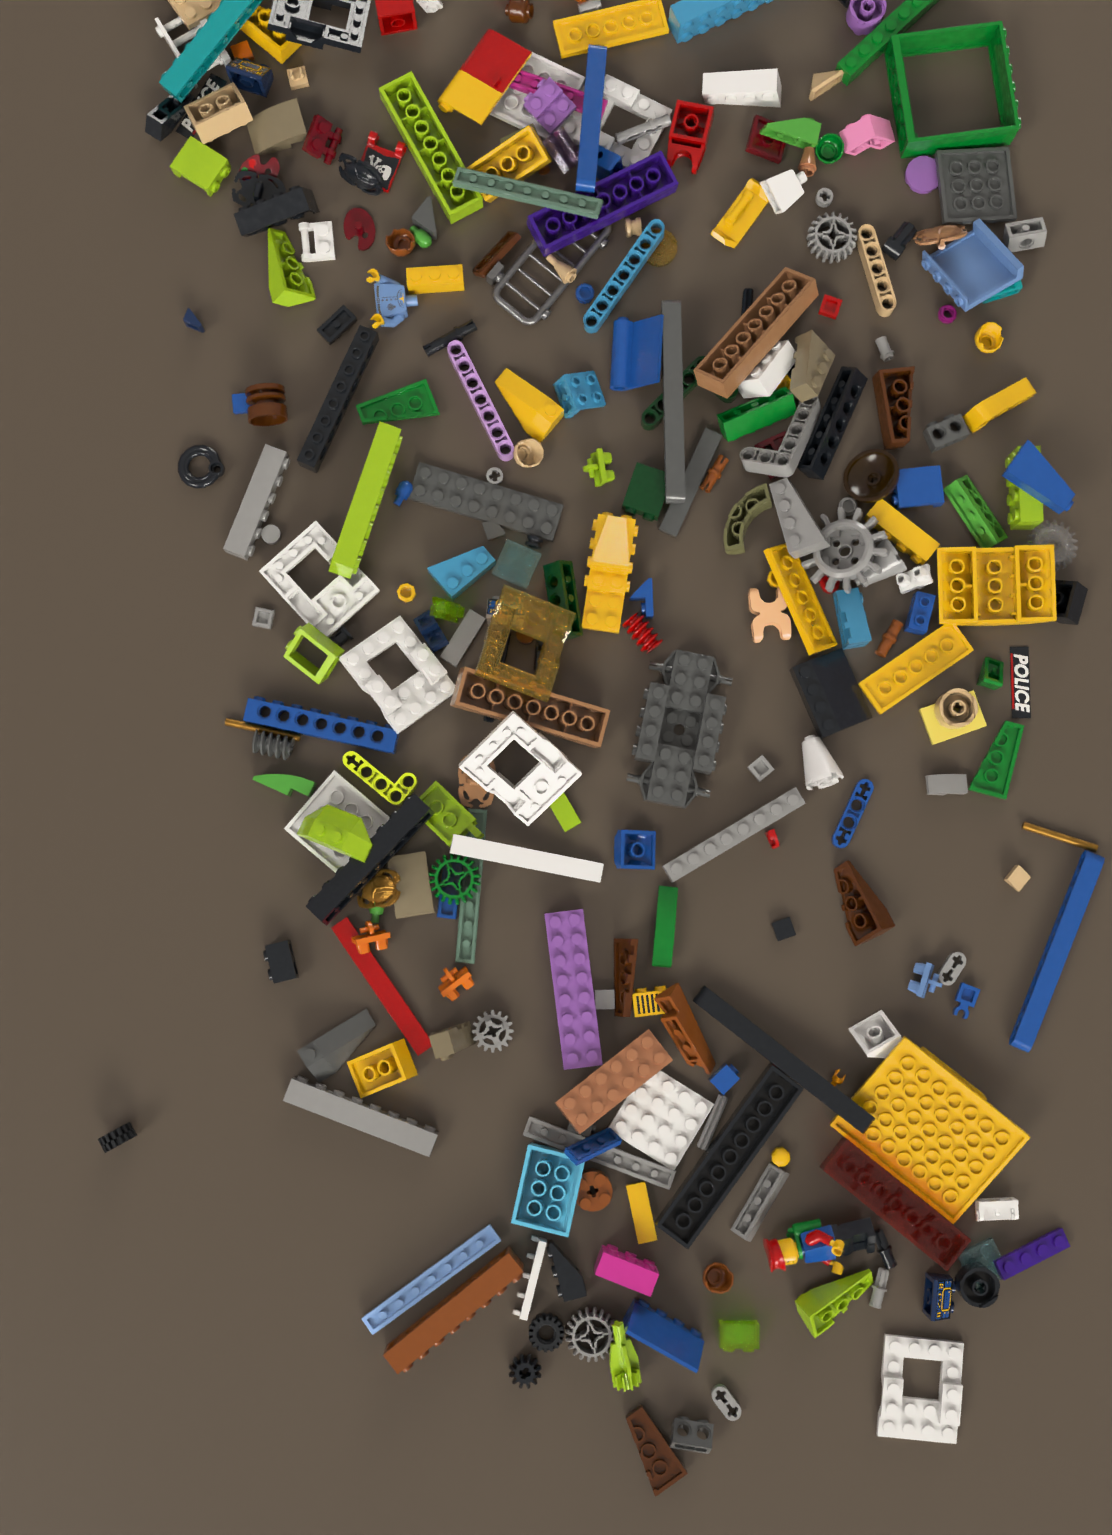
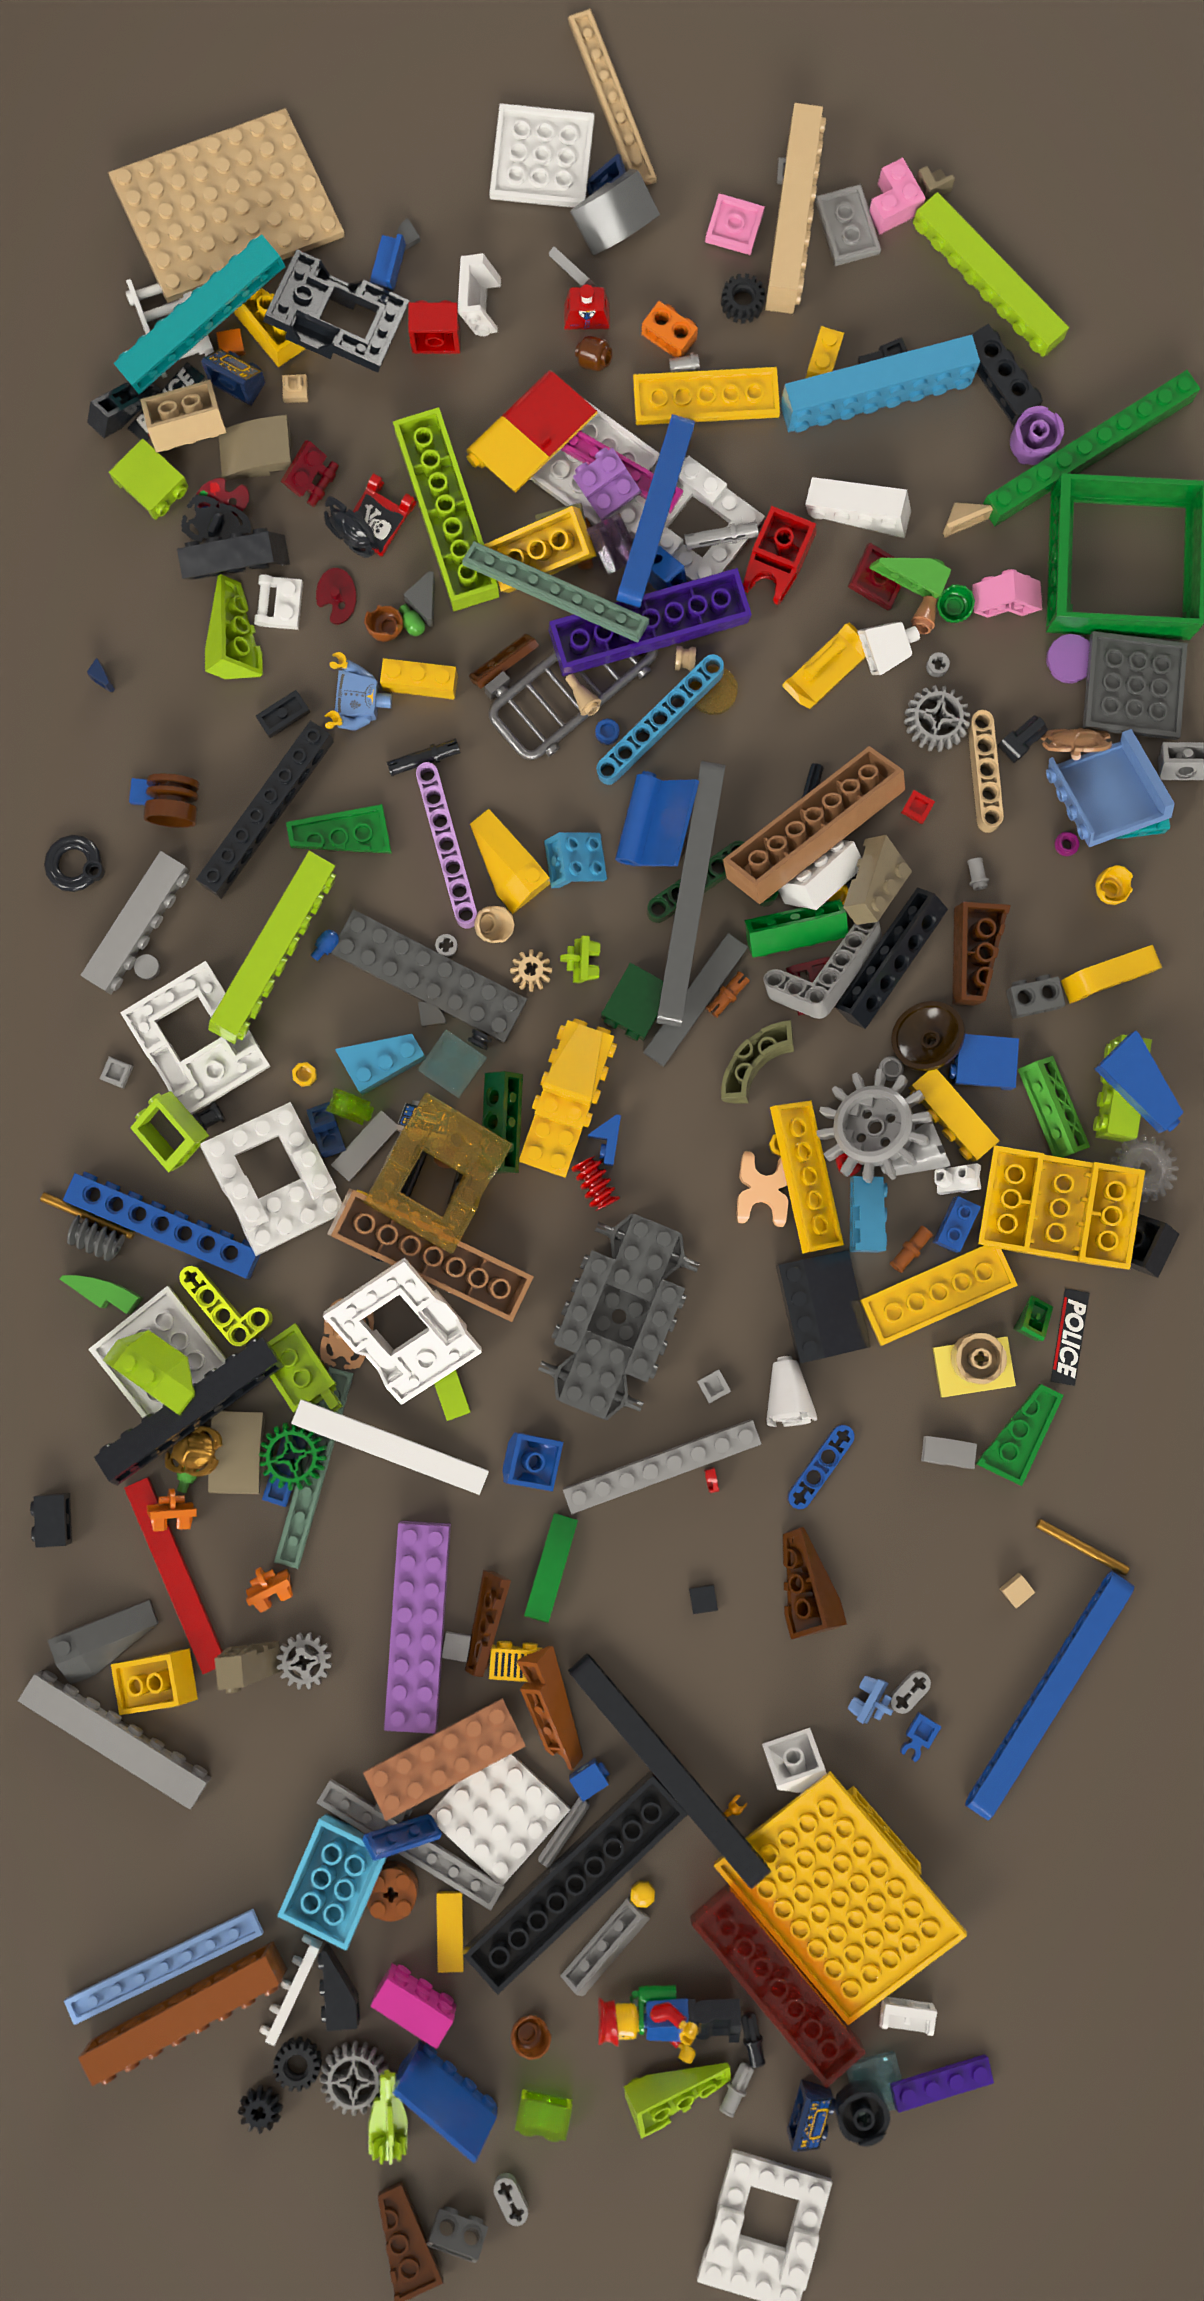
camera: 10 degrees right, 0 degrees up
(555, 481) = (540, 970): none -> tan gear
(797, 523) = (819, 1076): light grey wedge -> none

